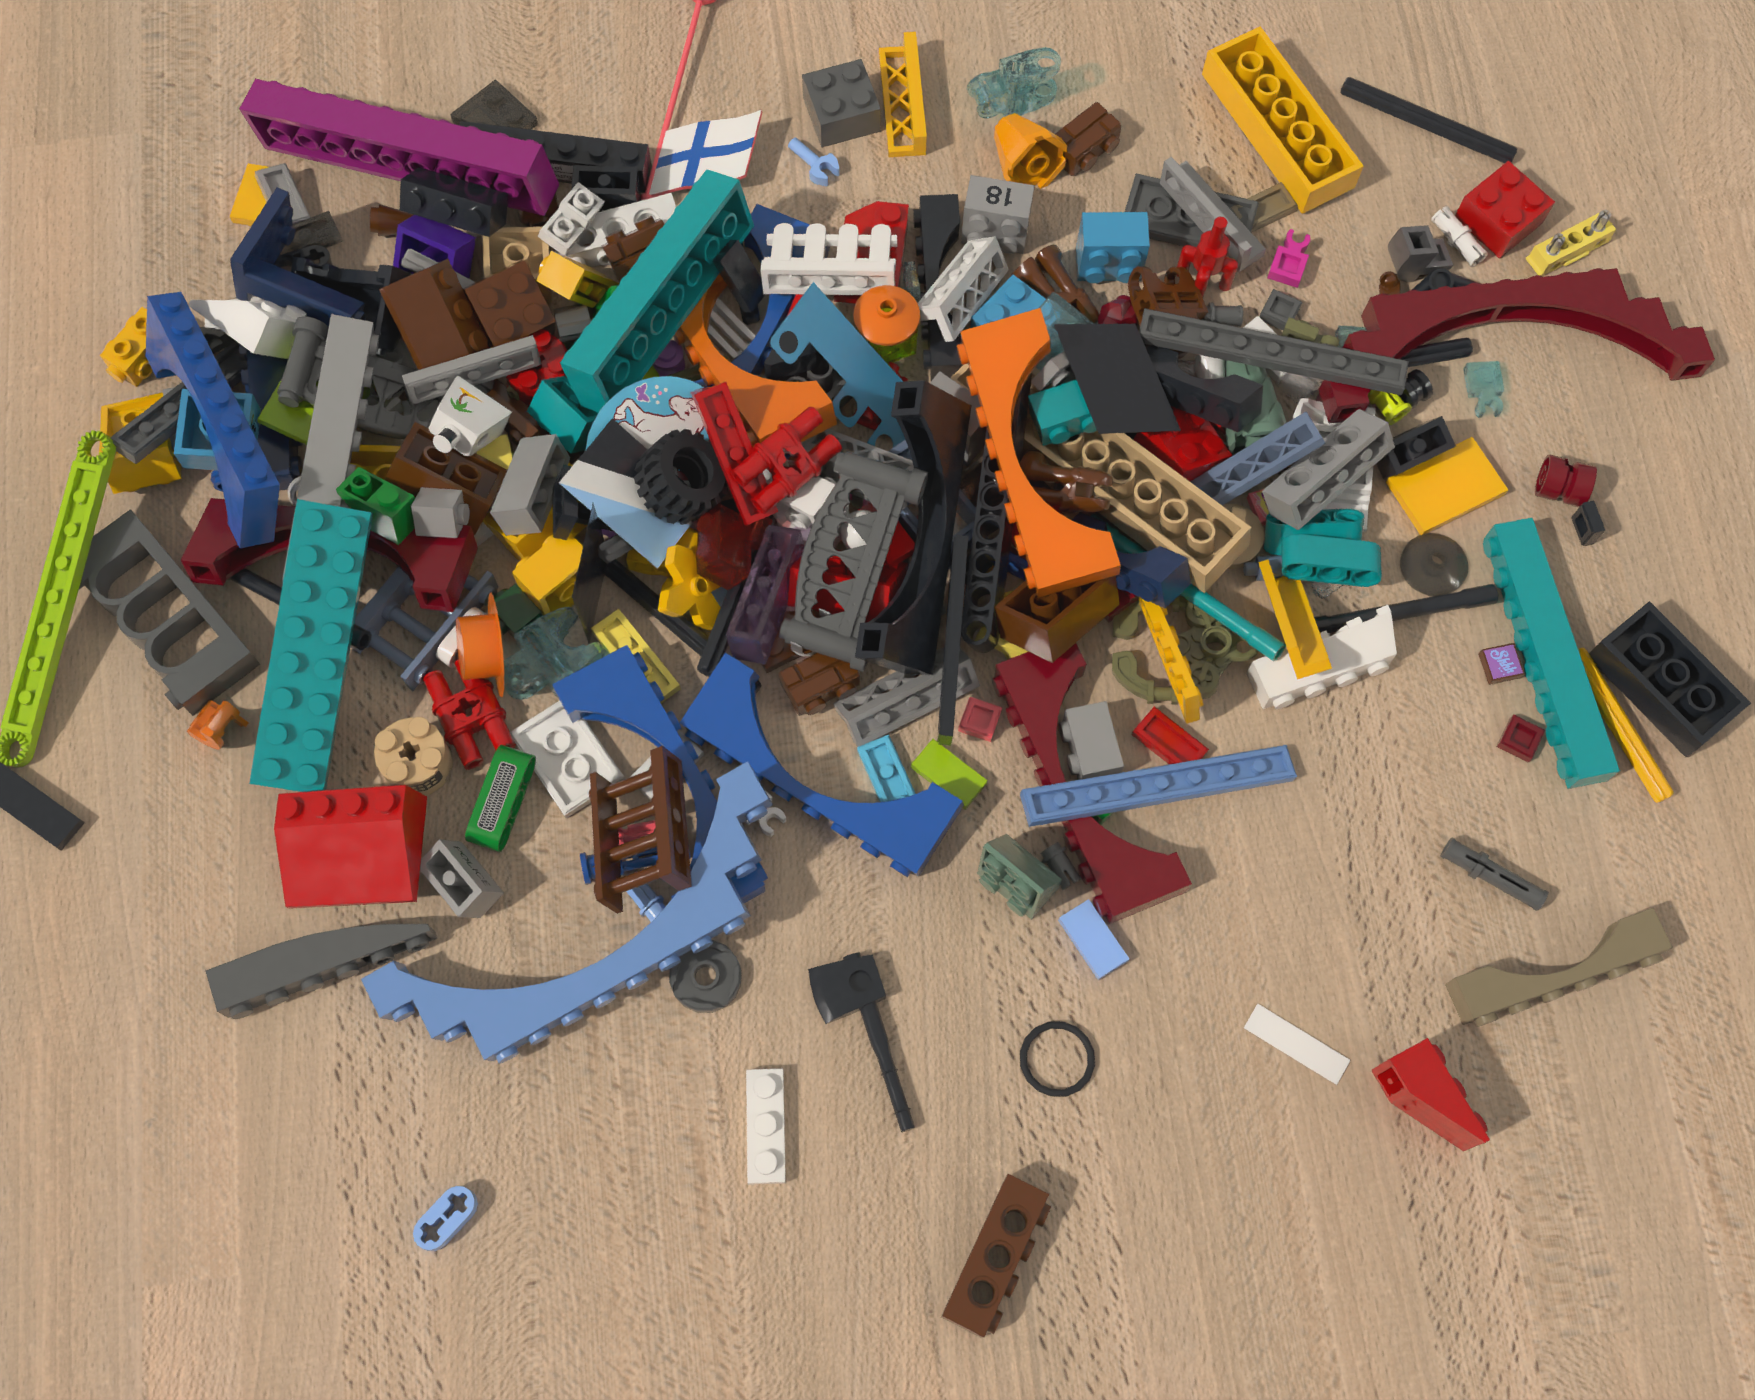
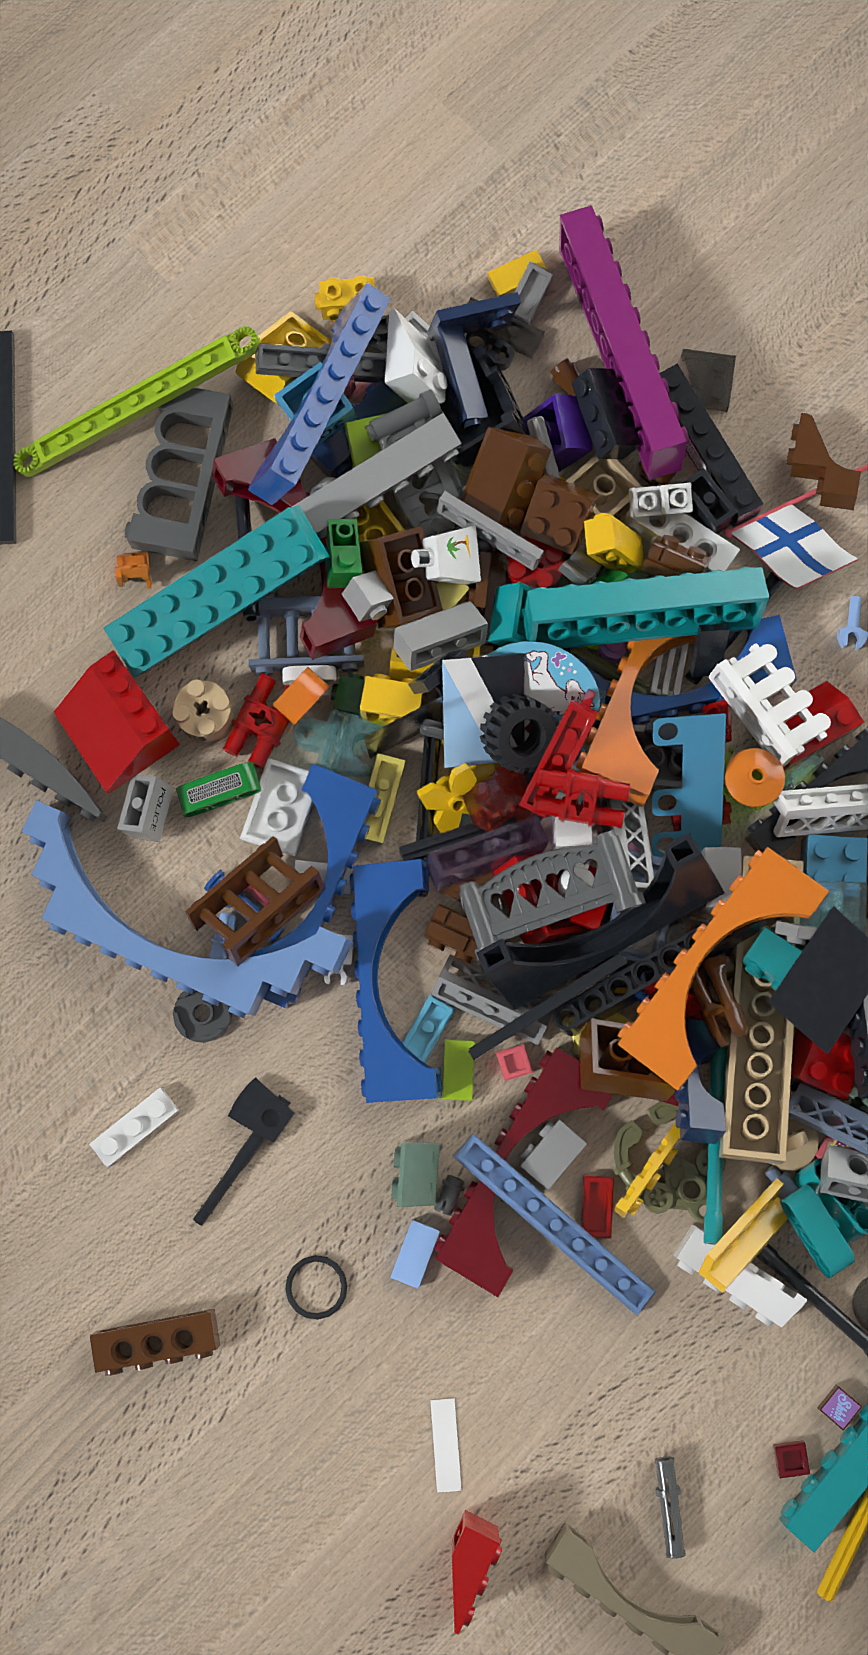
camera: 60 degrees right, 10 degrees up
(644, 84) = (812, 461): none -> reddish brown arch

